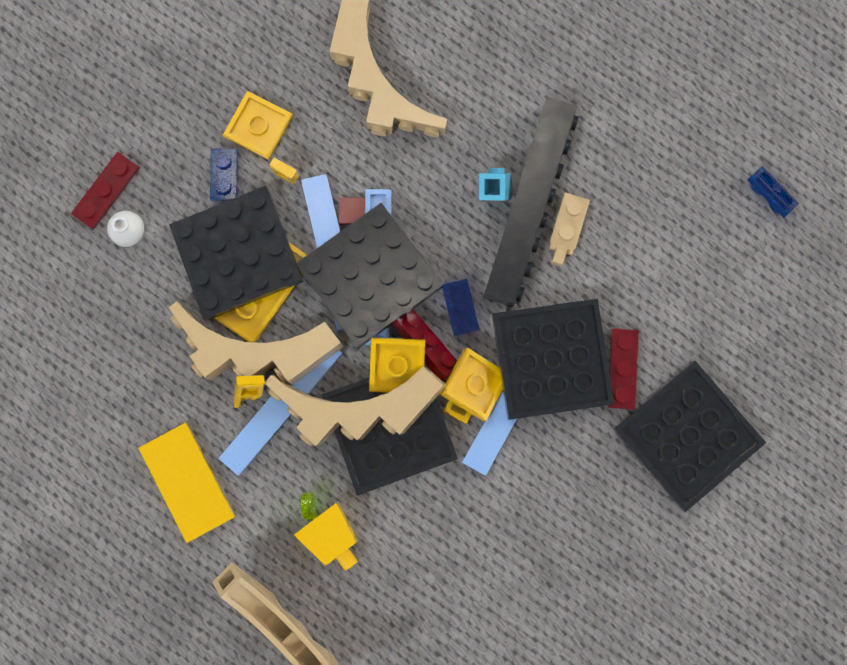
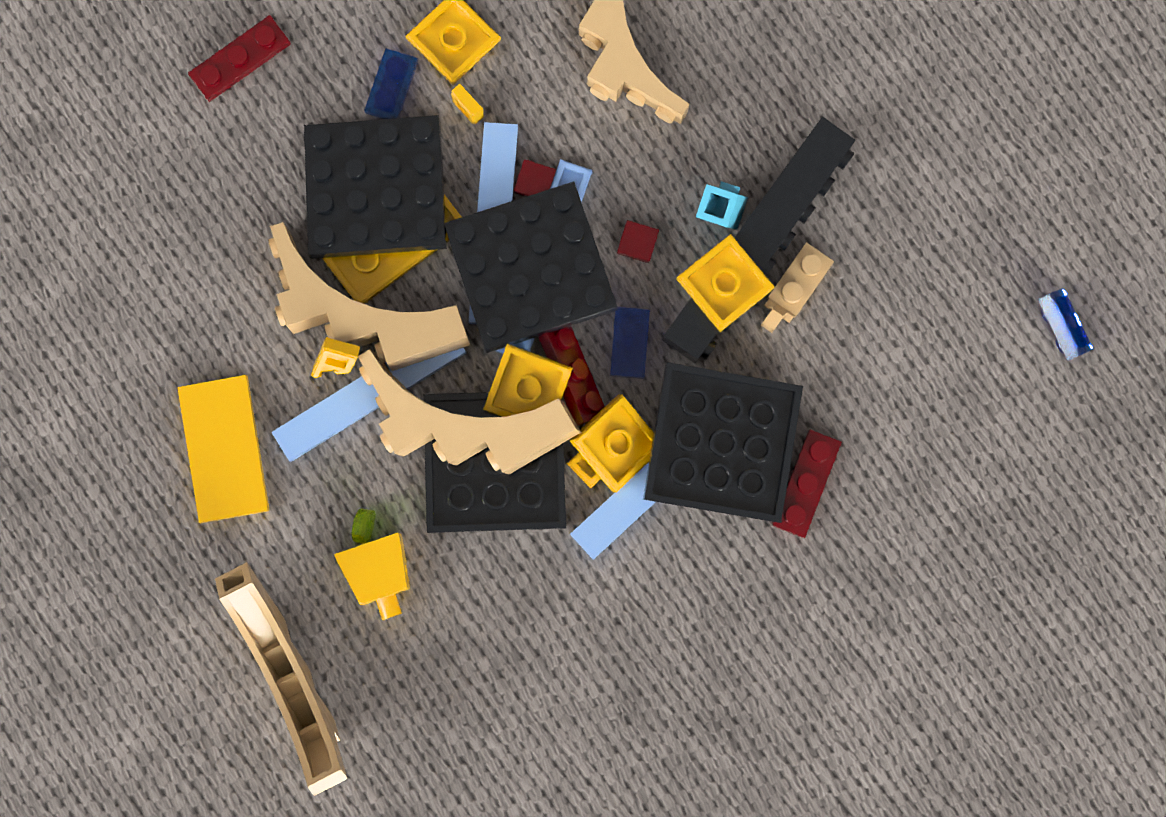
camera: 10 degrees right, 0 degrees up
(125, 228) = (249, 113): white brick -> none
(441, 231) = (638, 241): none -> dark red tile
(516, 241) = (725, 283): none -> yellow tile
(689, 436) = (862, 593): black plate -> none

